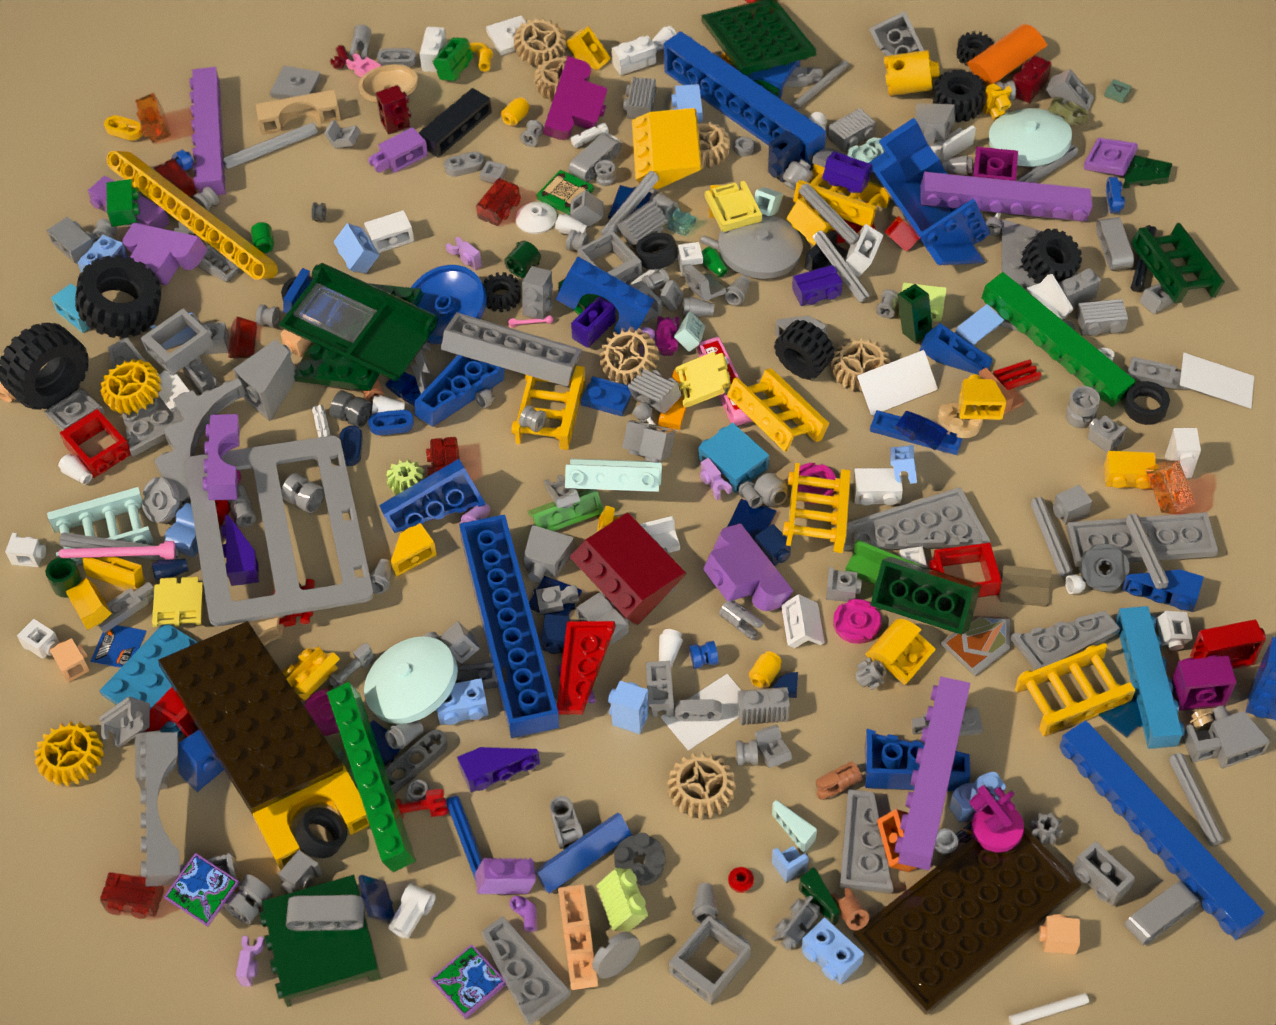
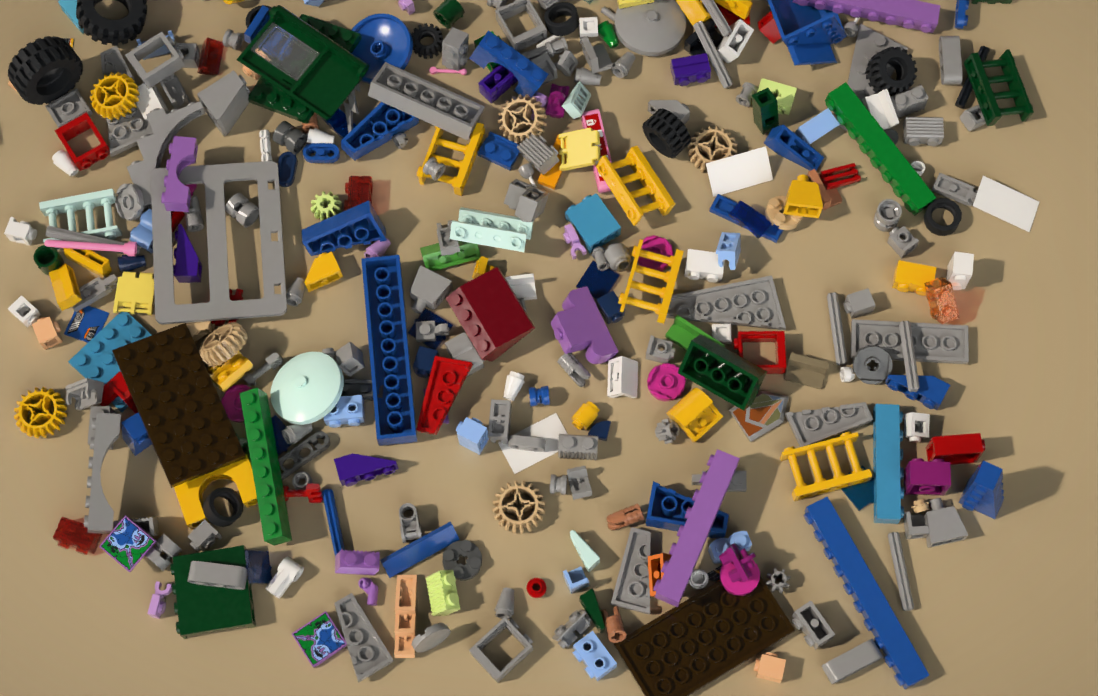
camera: 10 degrees right, 15 degrees up
(298, 640) = (222, 344): none -> tan gear

